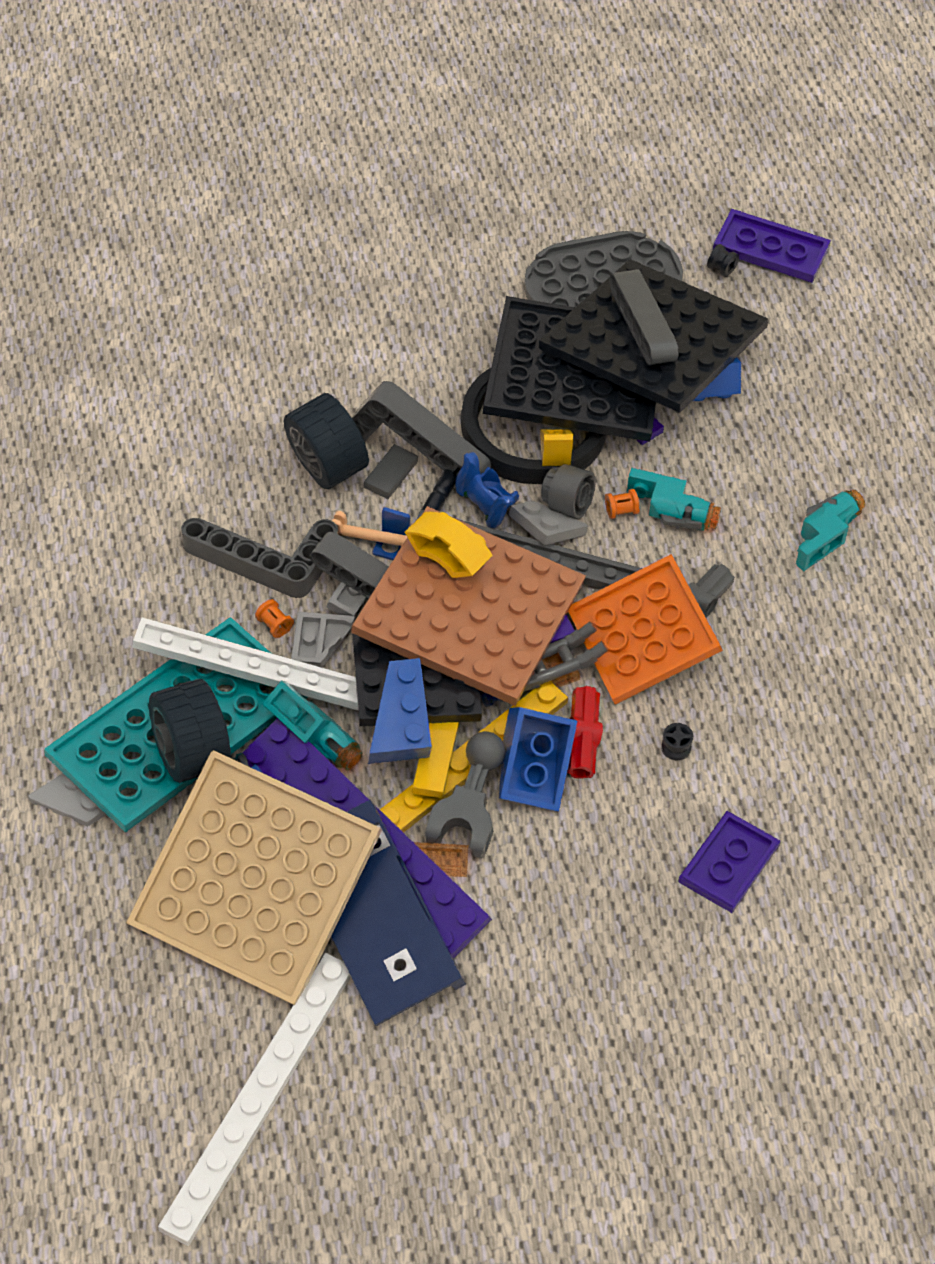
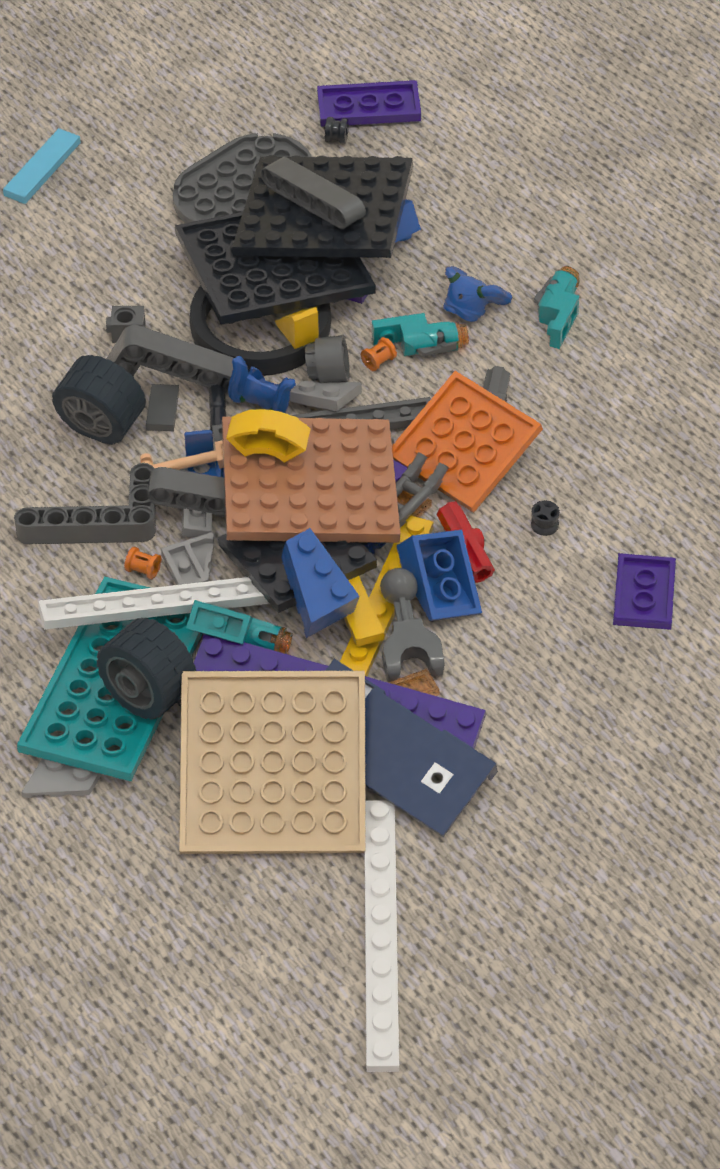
camera: 25 degrees left, 5 degrees down
(409, 374) = (123, 317): none -> dark grey brick
(431, 187) = (41, 166): none -> medium azure tile
(747, 480) = (475, 295): none -> blue hair

